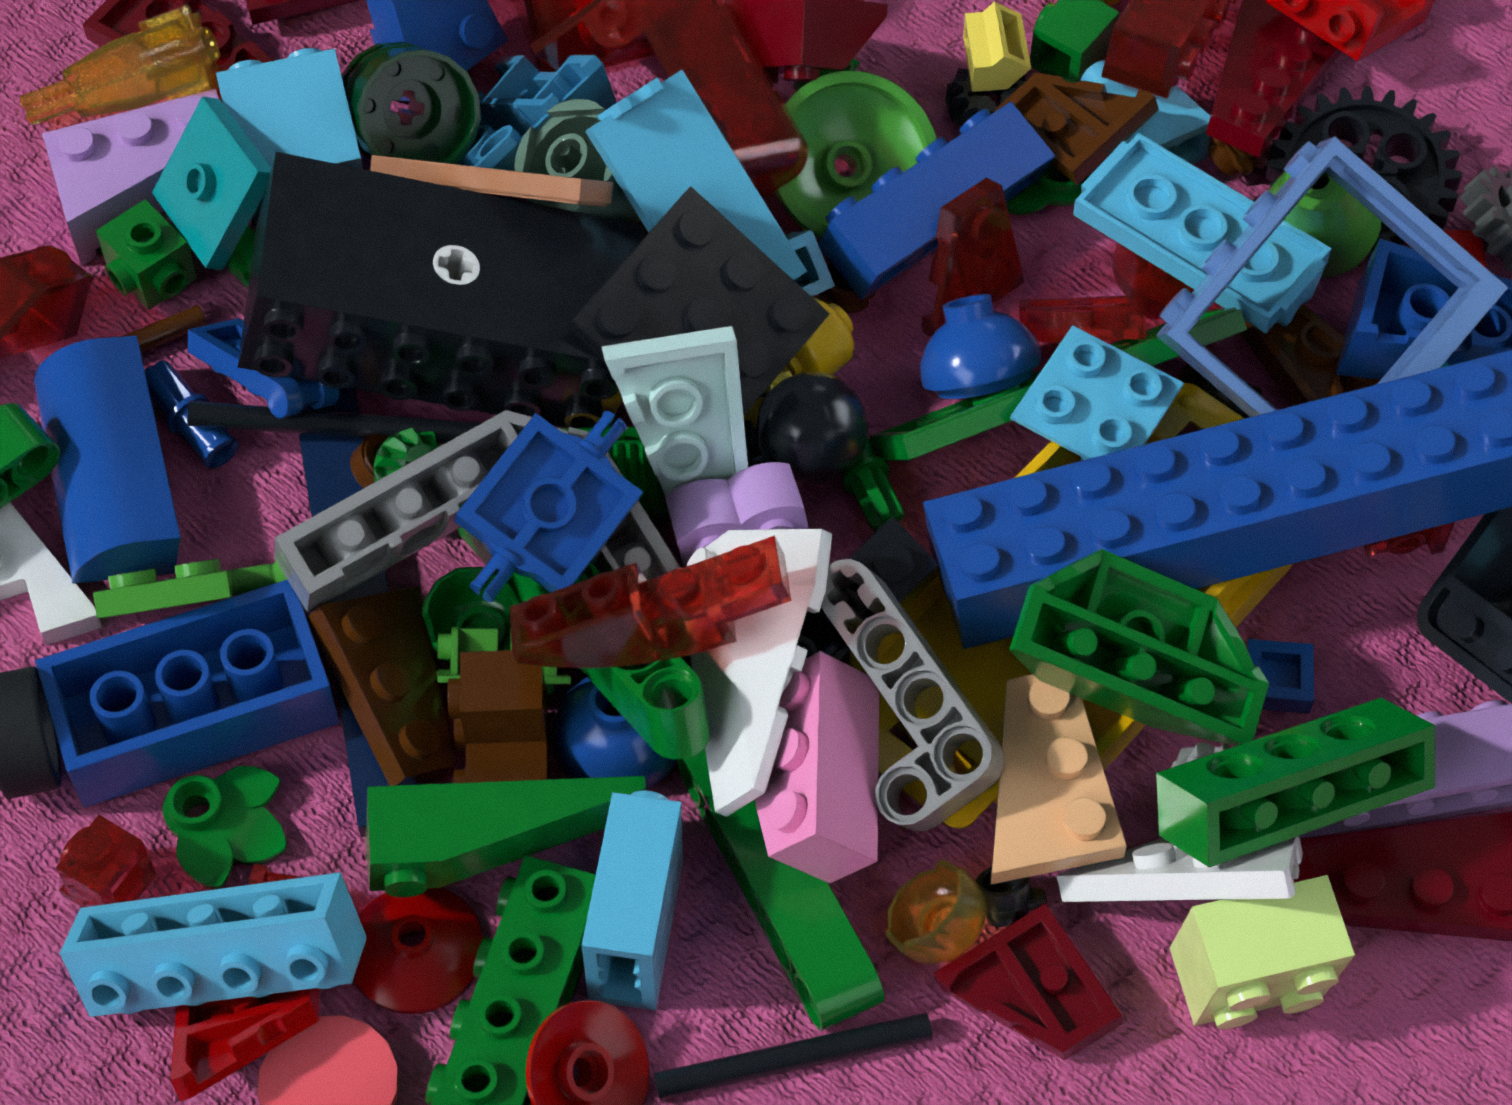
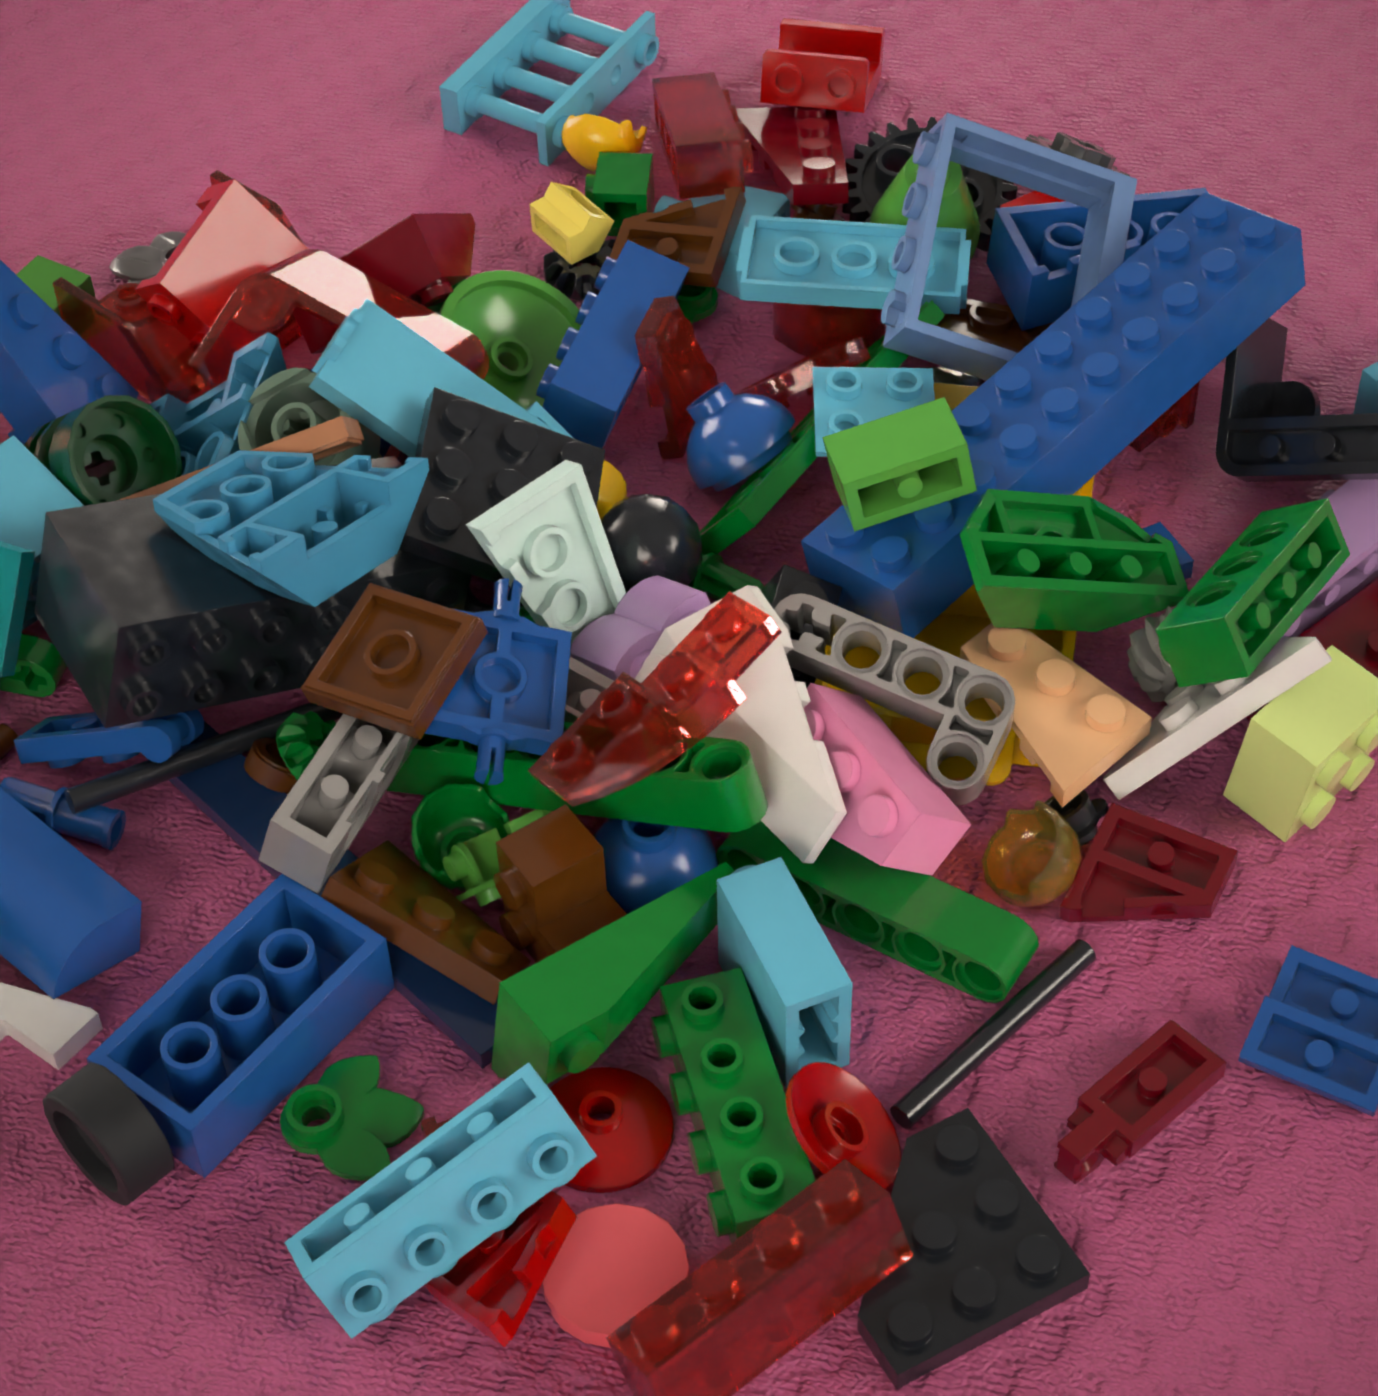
camera: 30 degrees left, 10 degrees down
(96, 861) = (269, 1206): clear red brick -> none
(193, 584) = (179, 934): bright green plate -> none
(463, 444) = (394, 660): none -> reddish brown tile
(476, 262) = (295, 522): none -> dark azure wedge
(1038, 480) = (900, 464): none -> bright green brick

